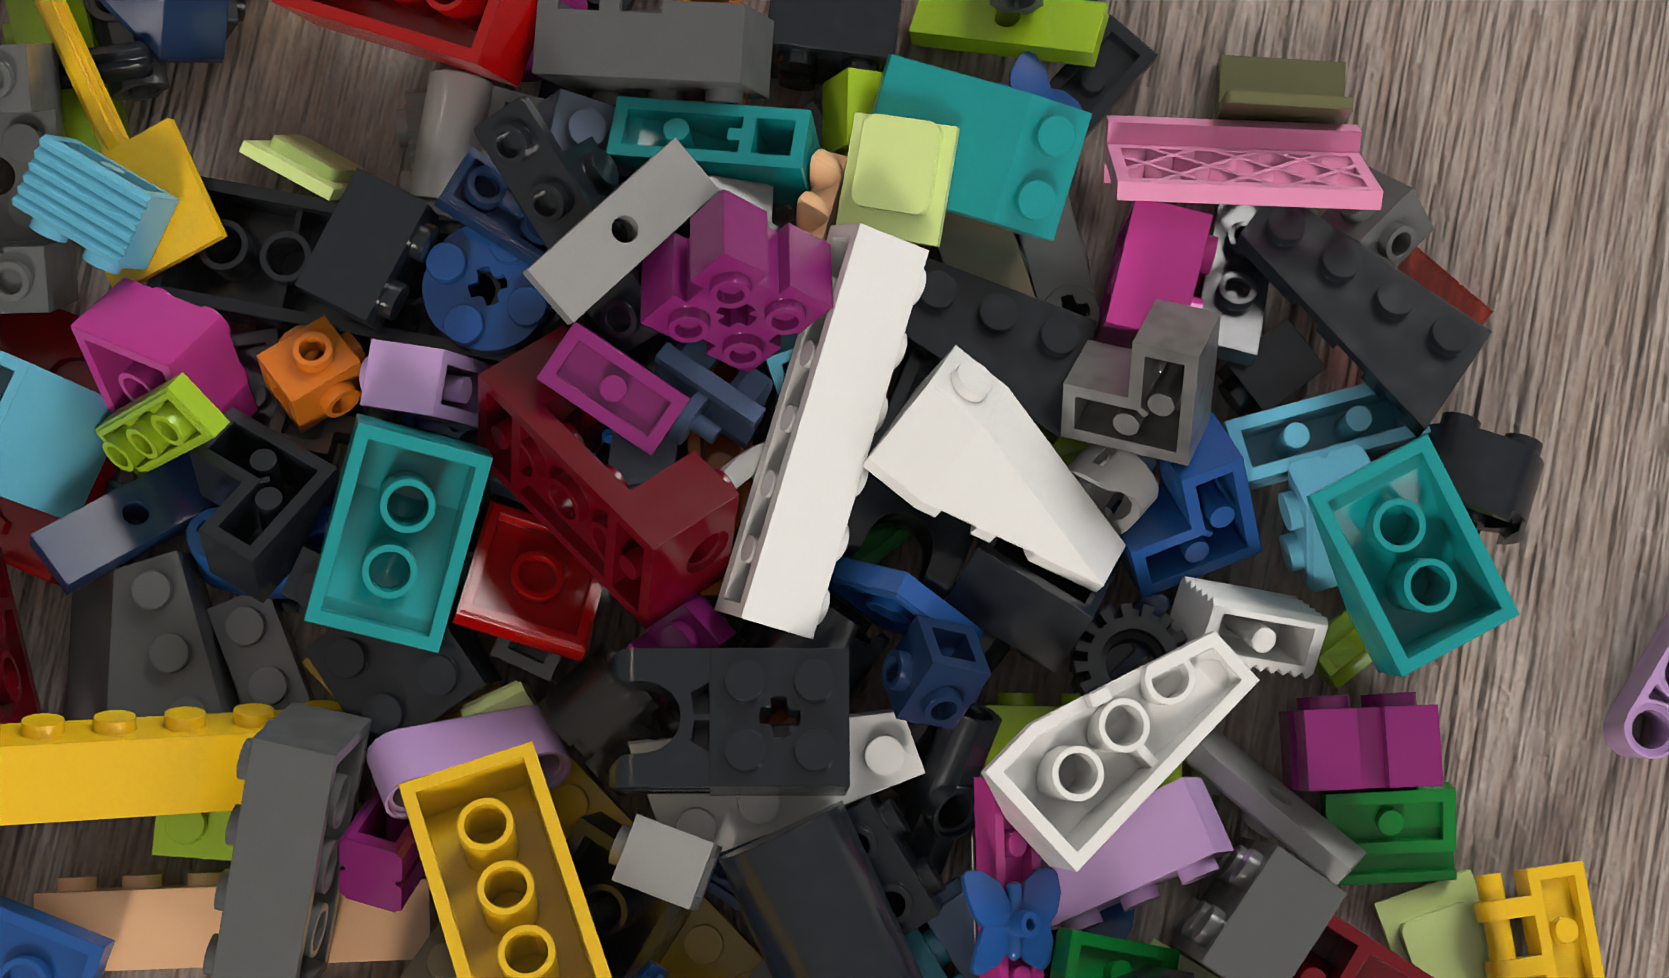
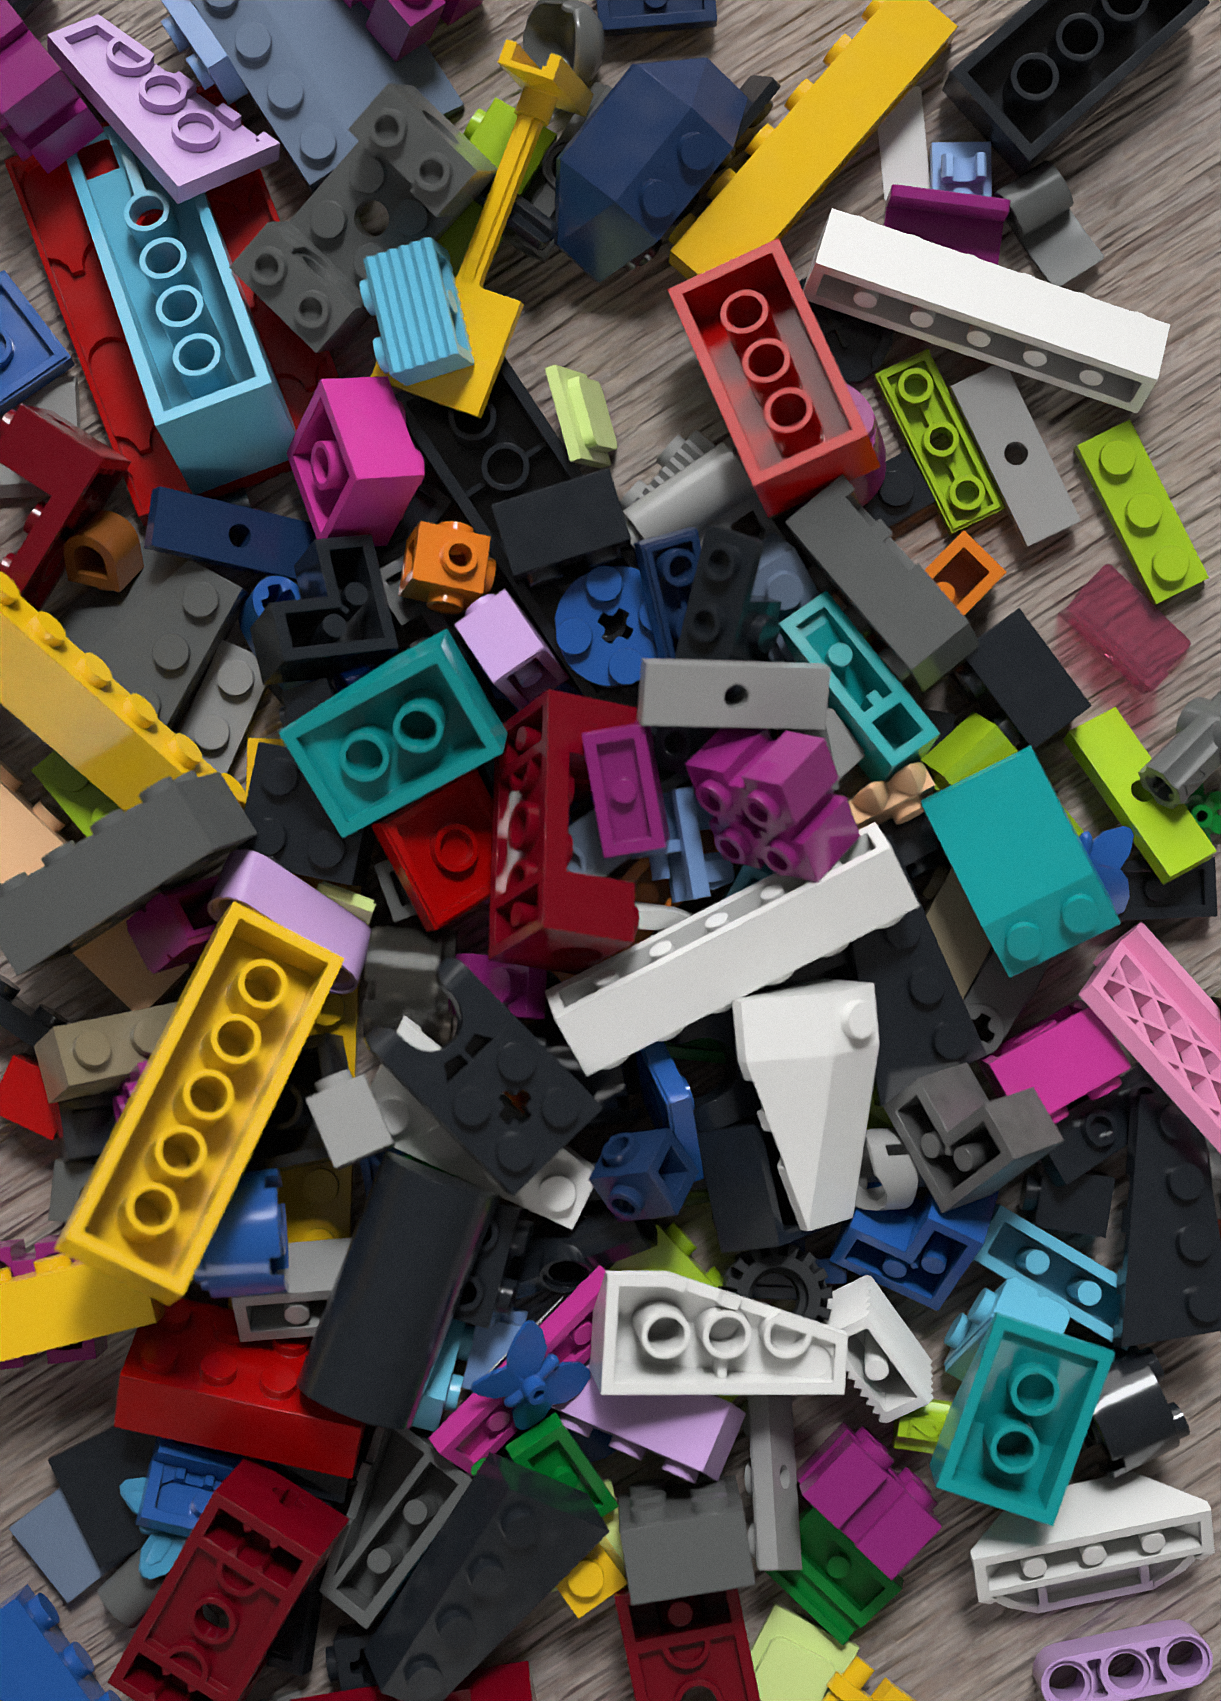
camera: 45 degrees right, 5 degrees up
(43, 632) = (104, 552): none -> dark orange plate
(160, 426) = (312, 501): lime tile -> none
(898, 176) = (949, 834): yellowish green piece -> none
(1572, 590) = (1103, 1545): none -> white wedge

